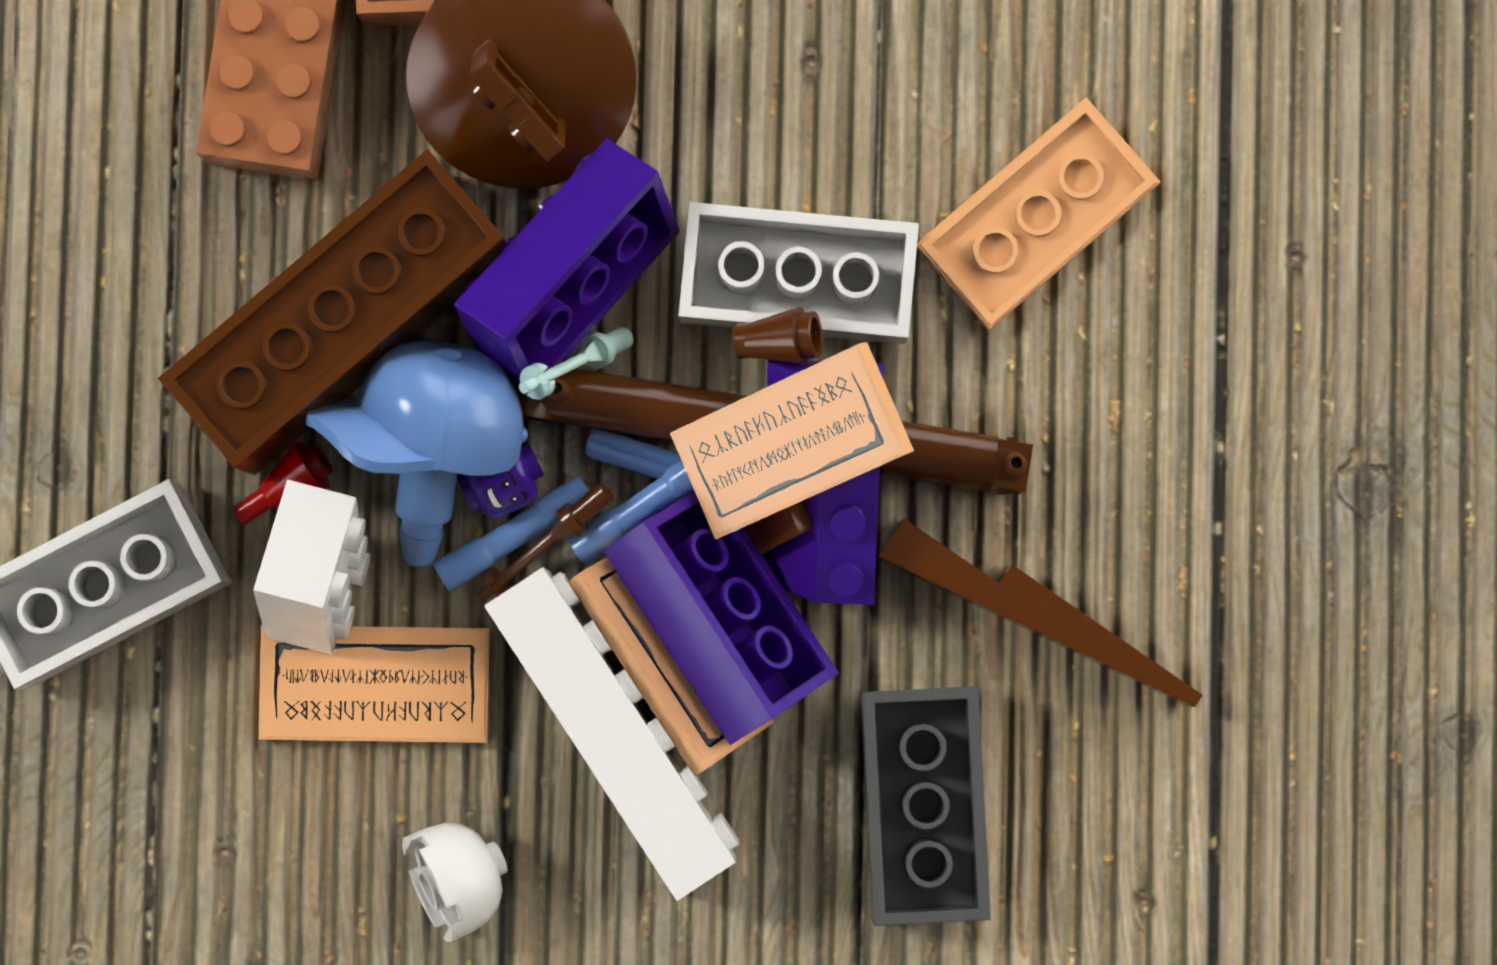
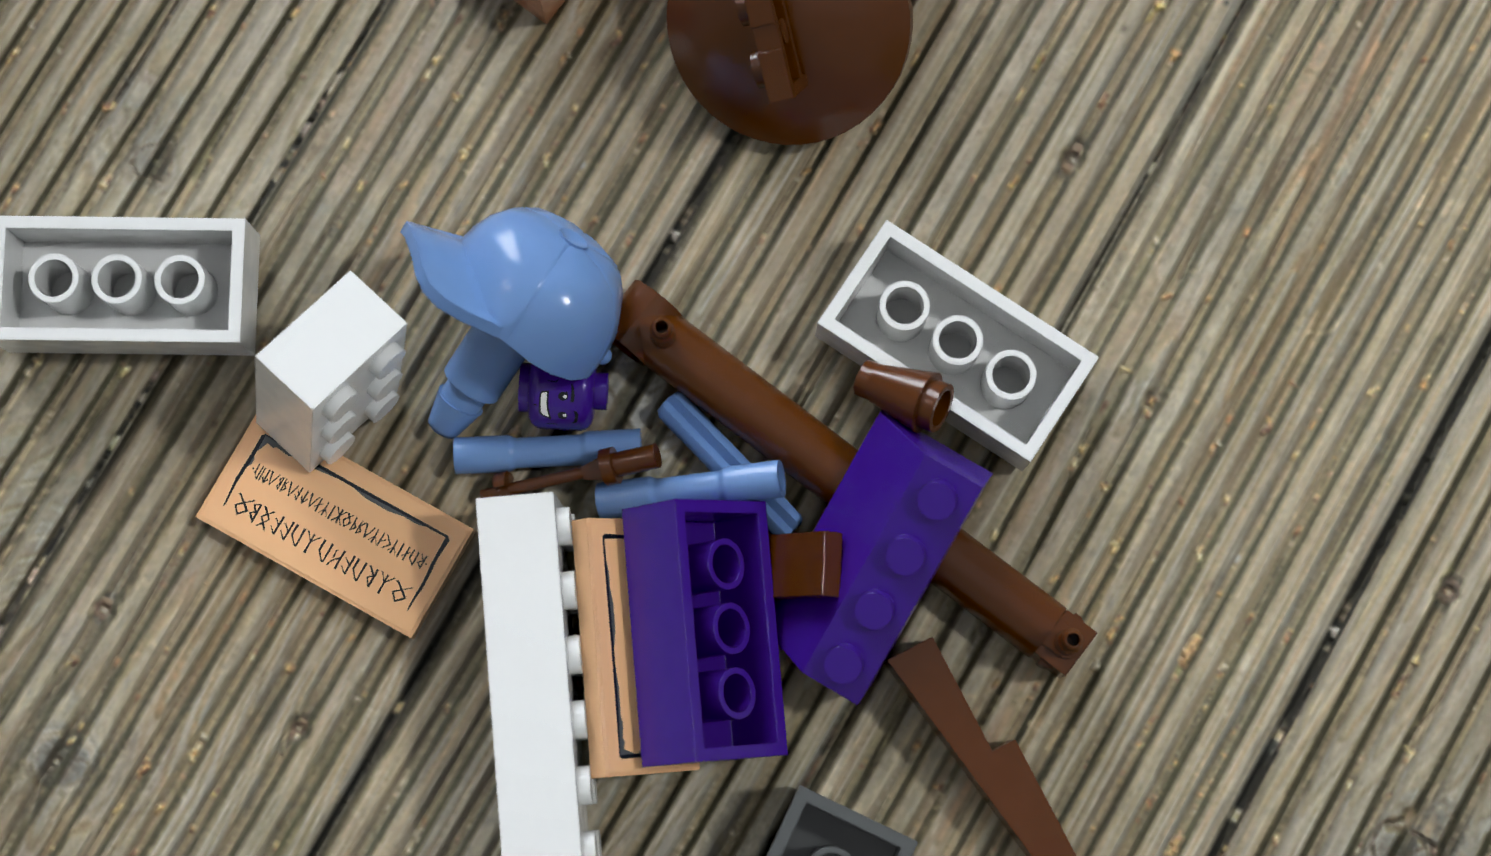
camera: 30 degrees right, 5 degrees down
(298, 465) = (381, 275): red cone -> none
(334, 314) = (454, 148): reddish brown brick -> none
(456, 876) = (308, 752): white cylinder -> none
(569, 262) = (737, 218): dark purple brick -> none
(596, 351) = (720, 317): light aqua piece -> none
(792, 440) = (864, 497): light nougat tile -> none
(1037, 214) = (1216, 415): light nougat tile -> none

